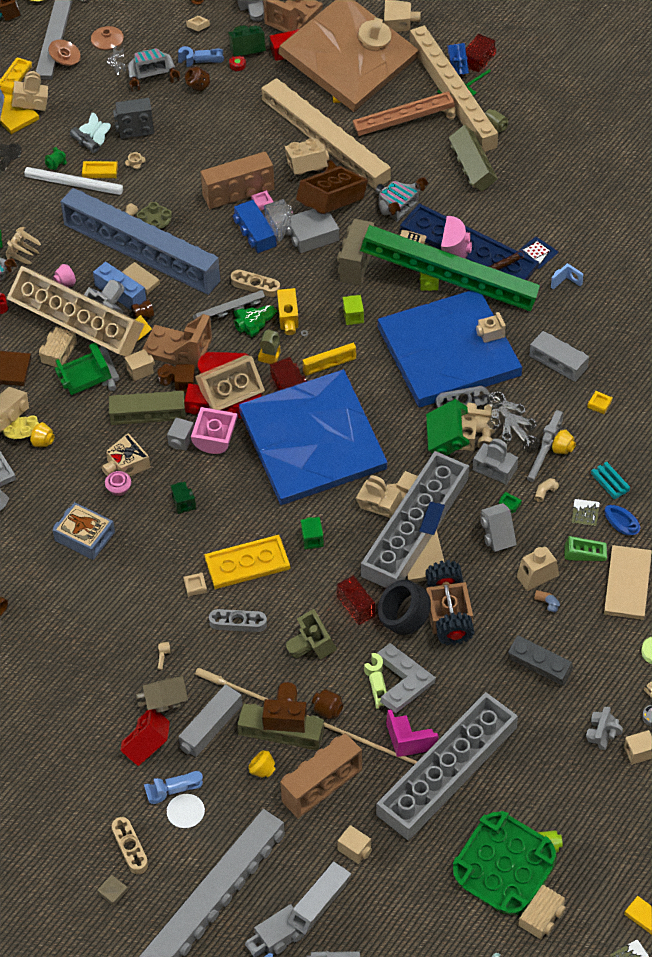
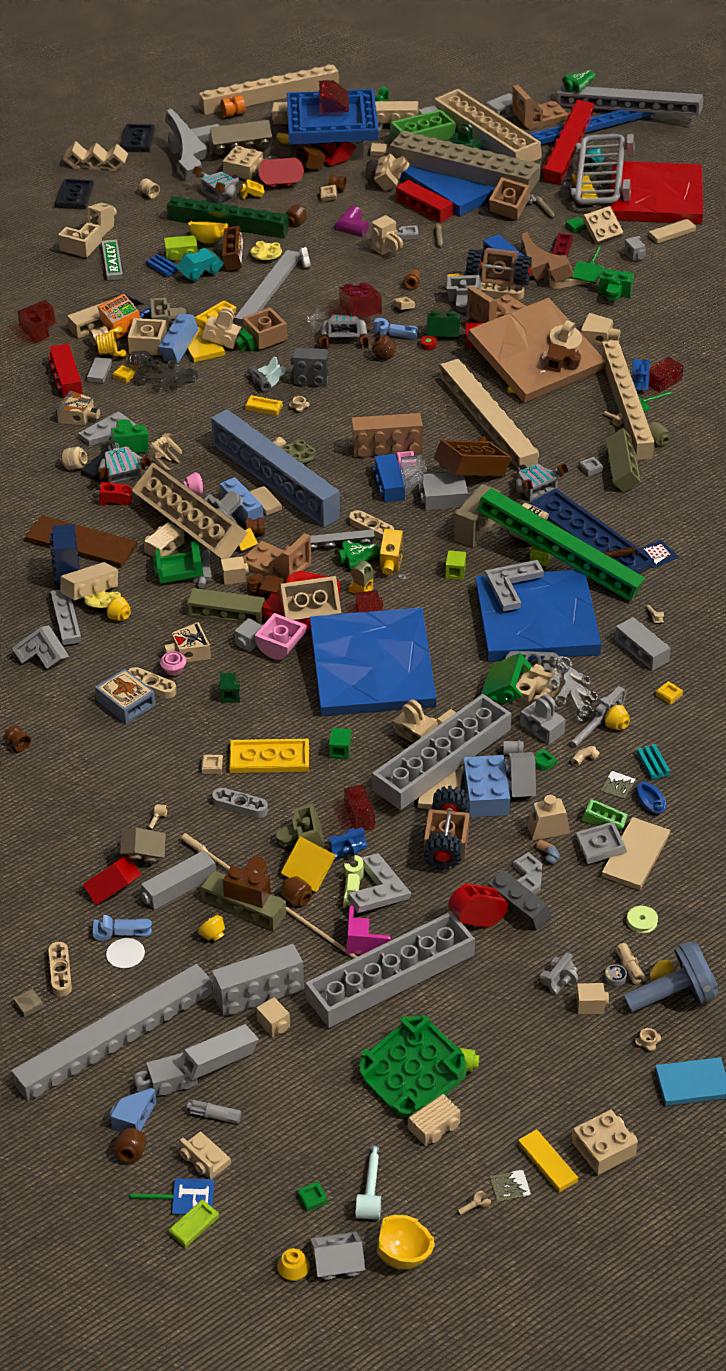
camera: 15 degrees right, 10 degrees down
(55, 159) = (225, 388): green brick -> none
(56, 100) = (245, 341): none -> green tile
(64, 52) = (266, 300): nougat dish -> none
(71, 82) = (265, 328): none -> medium nougat brick
(73, 180) = (235, 409): white axle -> none
(96, 503) = (163, 687): none -> tan beam
(107, 38) = (313, 300): nougat dish -> none
(157, 31) = (360, 300): none -> clear red brick
(306, 156) = (461, 427): tan brick -> none
(321, 775) = (264, 939): medium nougat brick -> none
(329, 359) = (424, 600): yellow tile -> none
(329, 811) = (258, 980): none -> light grey brick
(330, 672) = (308, 863): none -> yellow tile
(359, 639) = (348, 843): none -> blue hips
(375, 55) = (560, 355): none -> reddish brown brick
(403, 113) = (570, 411): nougat plate -> none
(406, 318) = (503, 577): none -> light grey plate
(416, 614) = (401, 822): black tyre -> none
(432, 518) = (456, 749): dark blue sticker -> none
(442, 169) = (590, 466): none -> light grey tile
(456, 238) = (574, 519): bright pink brick -> none
(467, 544) = (486, 785): none -> medium blue brick
(476, 497) = (513, 747): none -> light grey piece
(491, 328) = (581, 603): tan brick -> none
(507, 679) = (477, 905): none -> red brick
(537, 623) = (531, 871): none -> light grey tile
(560, 322) = (657, 617): none -> tan hand
(566, 272) = (674, 575): light blue bracket -> none
(592, 579) = (600, 842): none -> light grey tile

